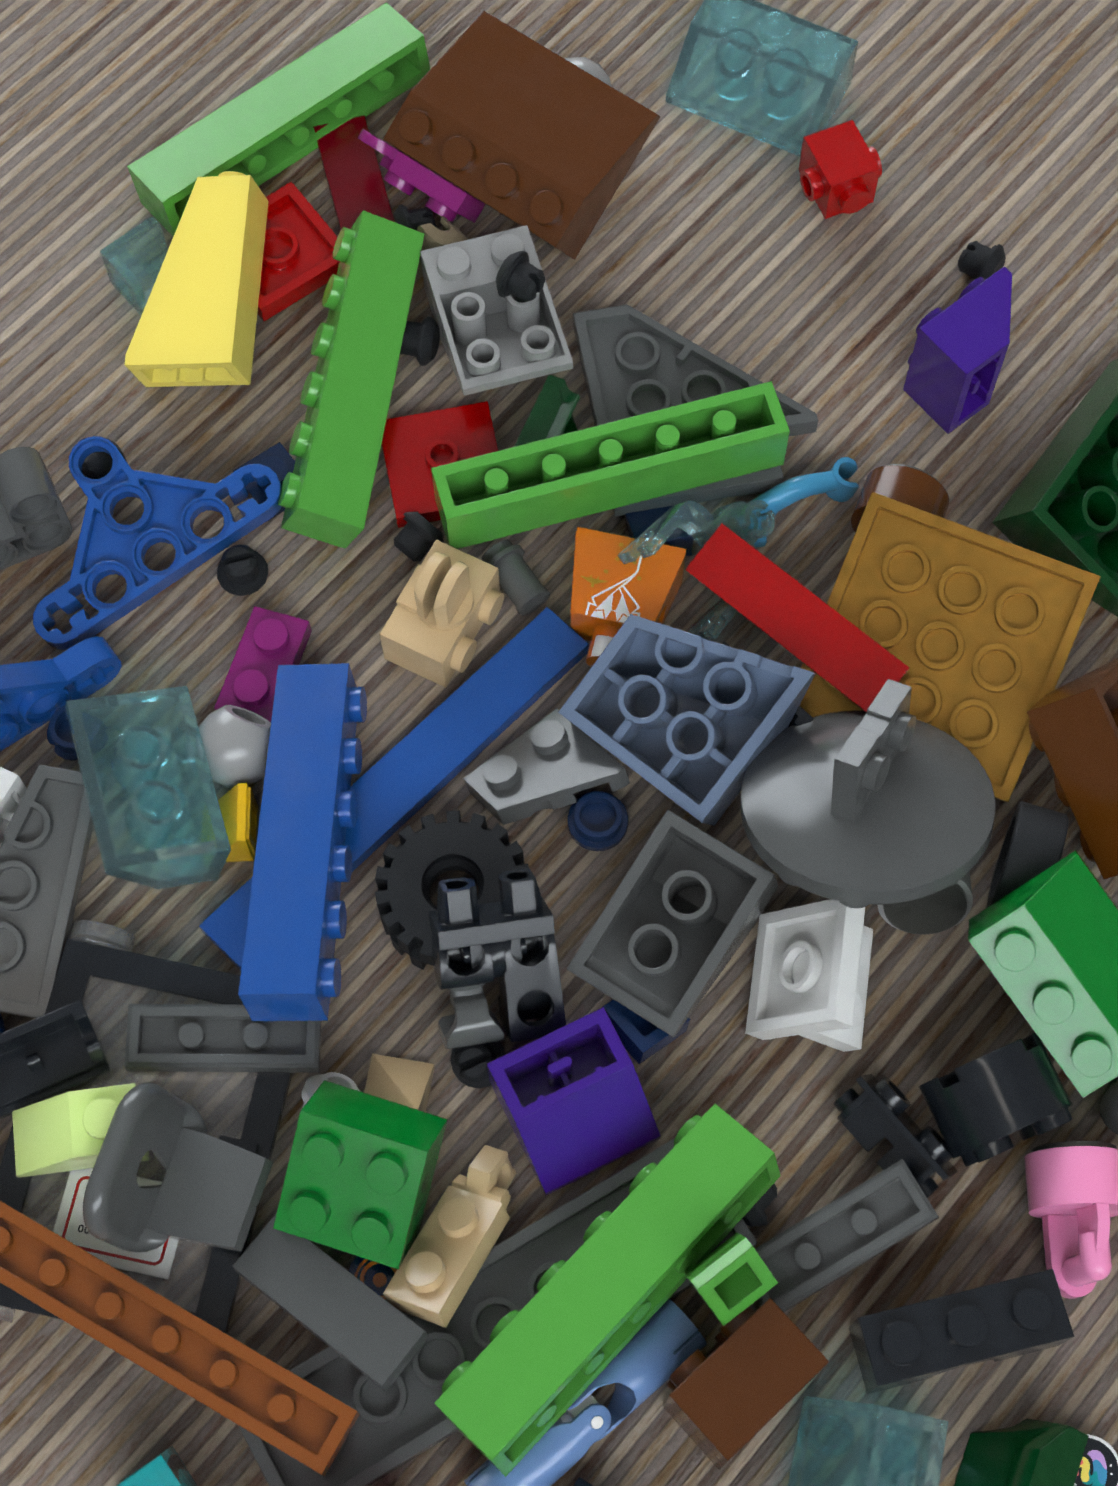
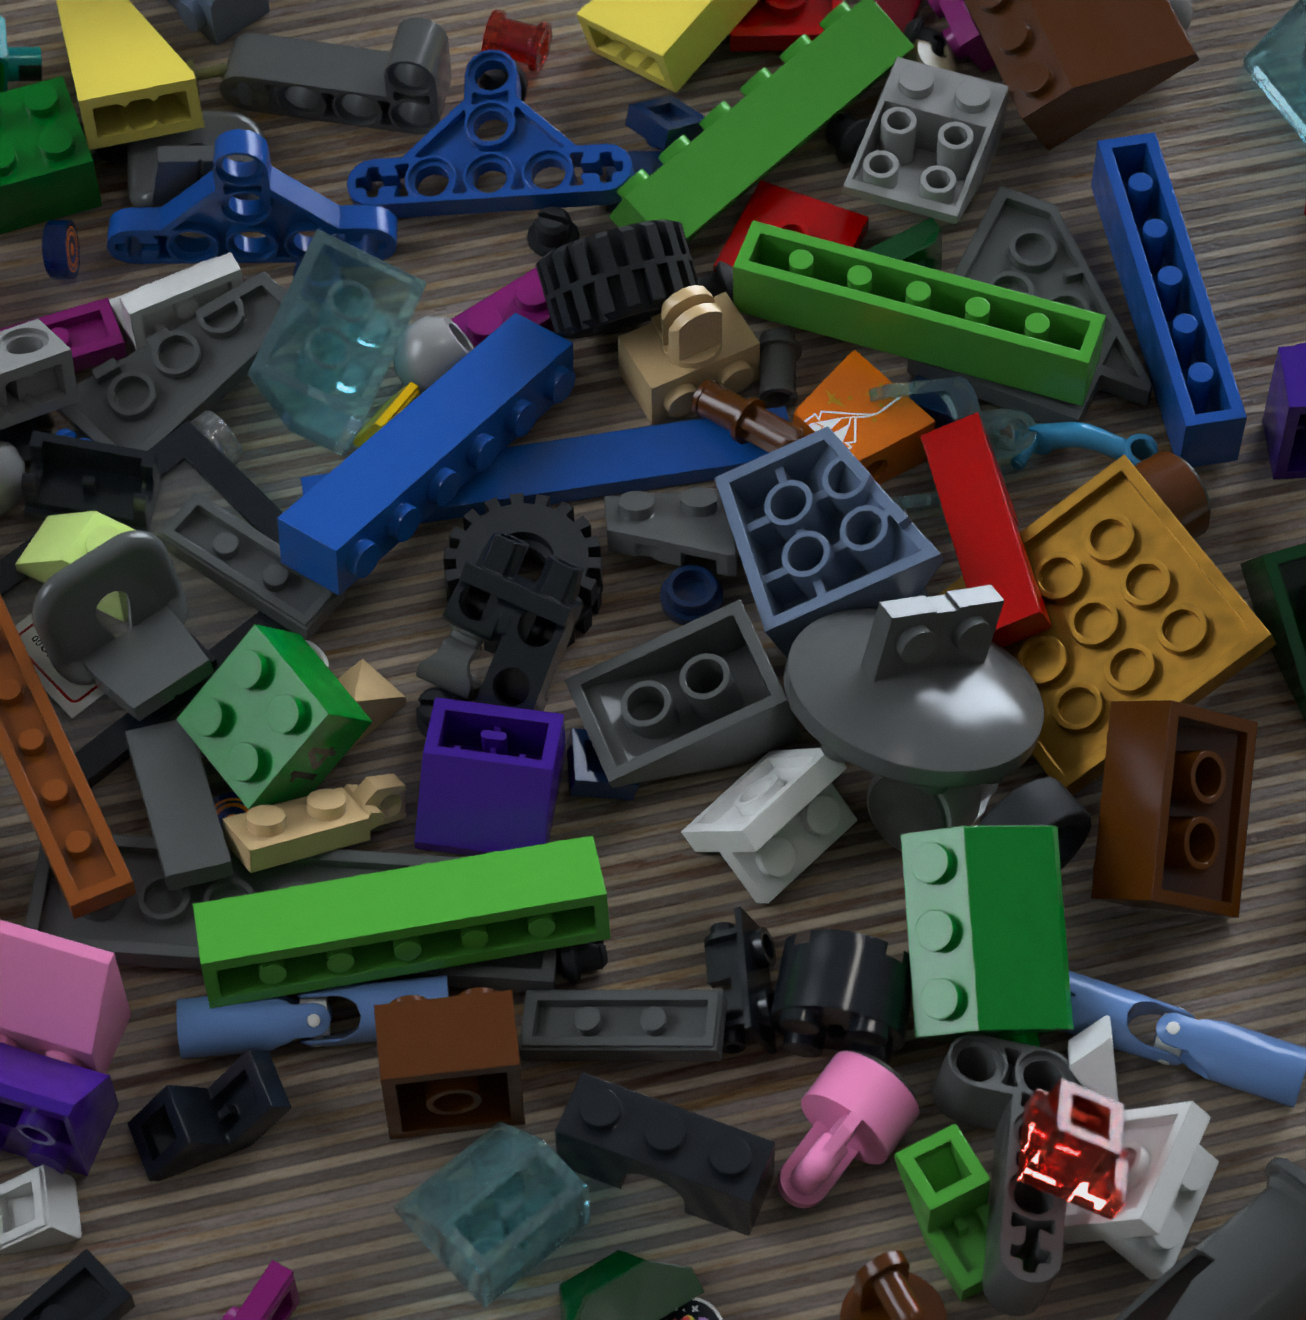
camera: 35 degrees right, 10 degrees down
(83, 416) = (518, 39): none -> clear red bush
(264, 416) = (663, 121): none -> dark blue plate
(349, 585) = (615, 277): none -> black tyre
(519, 277) = (957, 117): black piece -> none
(538, 641) = (743, 417): none -> reddish brown axle
(731, 1278) = (501, 958): bright green slope -> none
(777, 334) = (1168, 301): none -> blue brick

